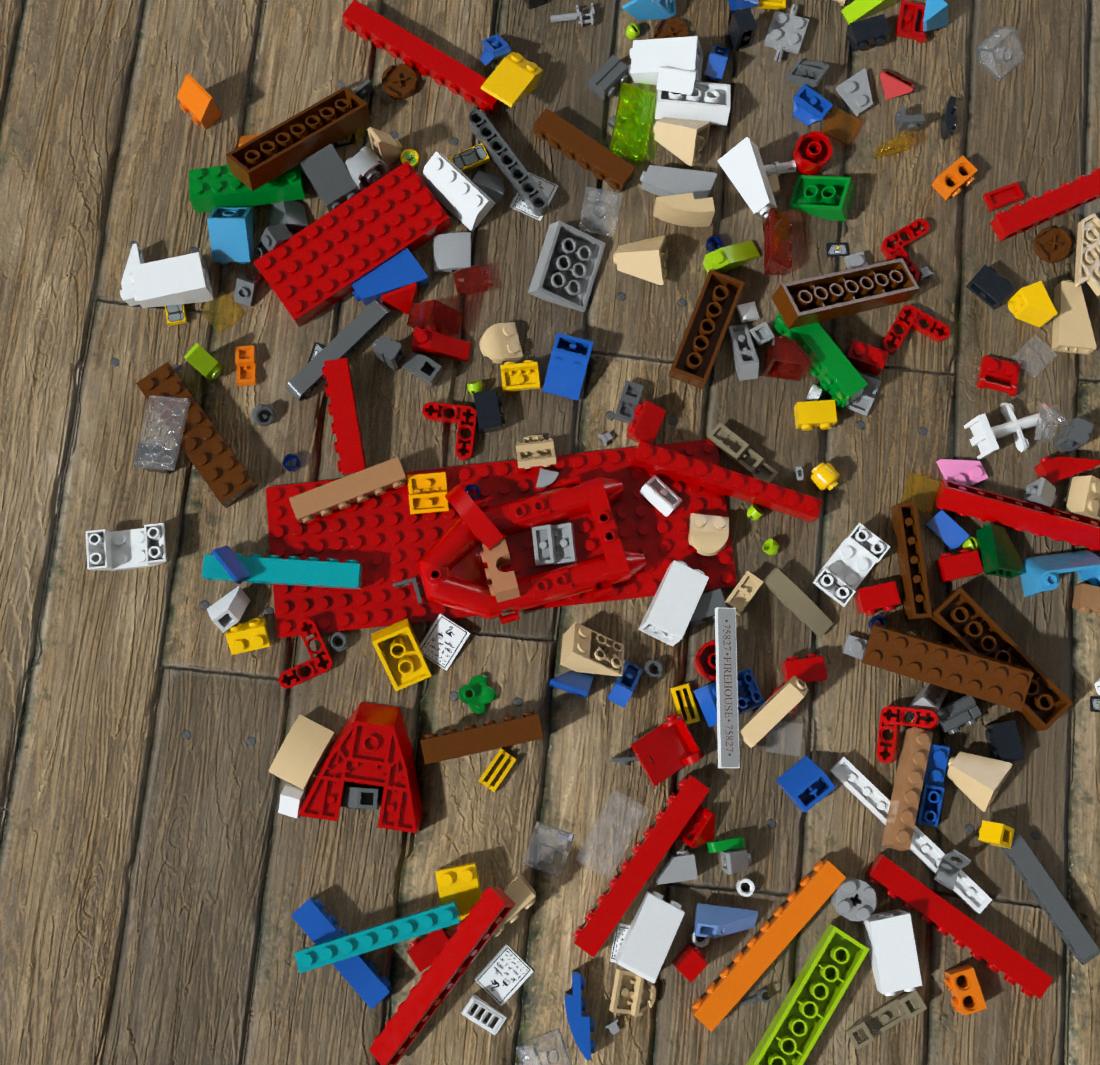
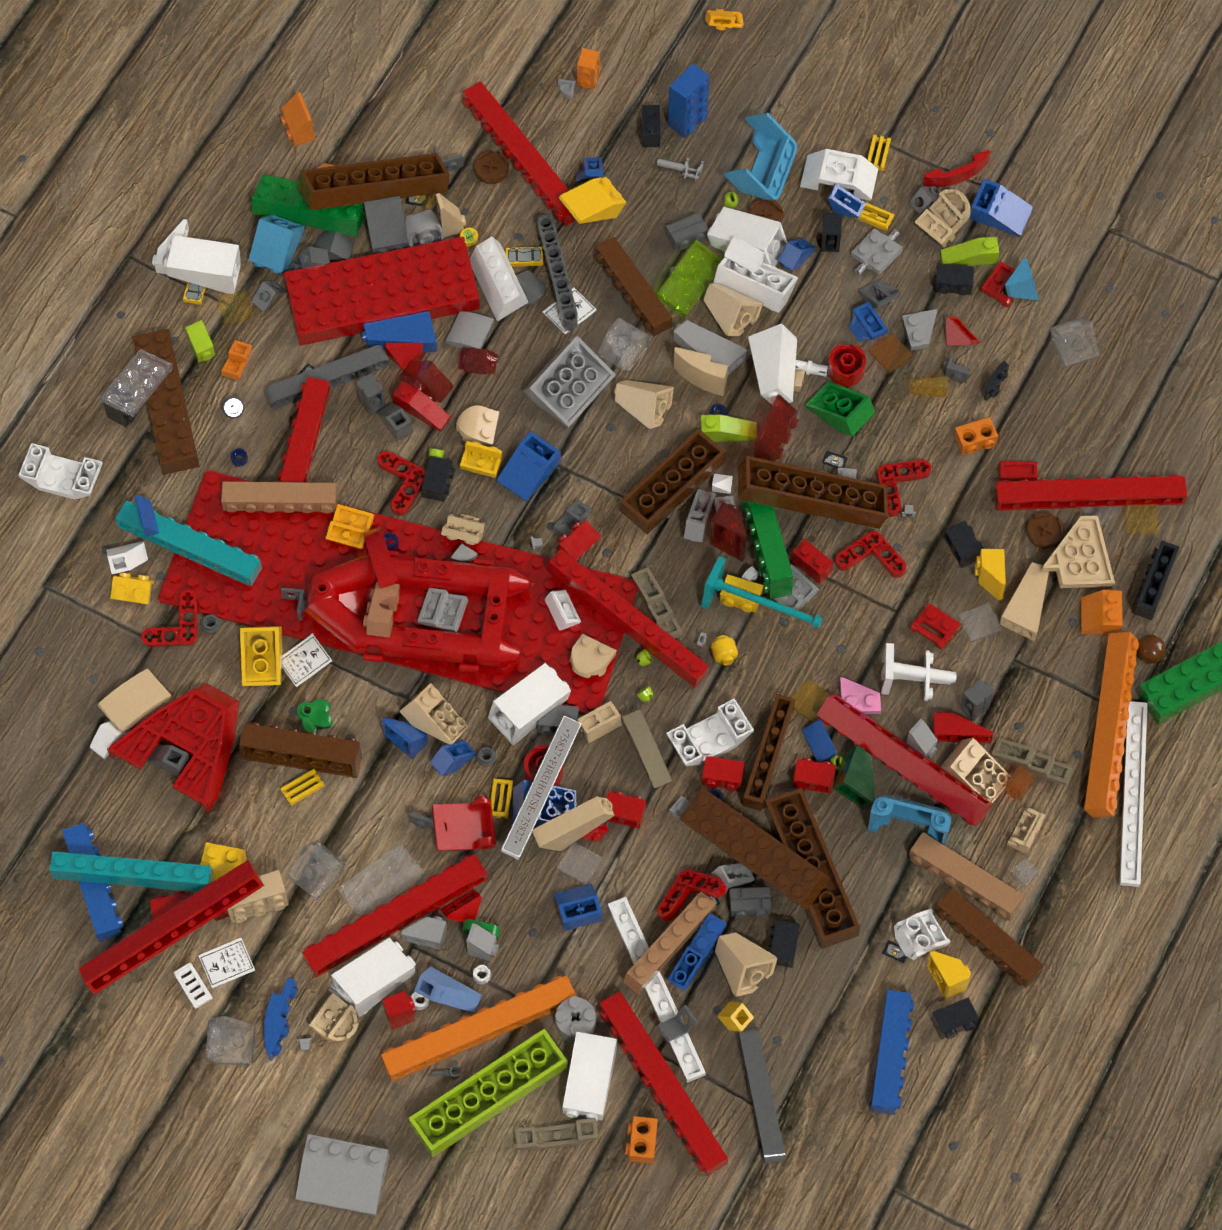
camera: 25 degrees right, 15 degrees down
(791, 416) = (715, 583): none -> teal tile
(1047, 419) = (961, 679): clear slope -> none

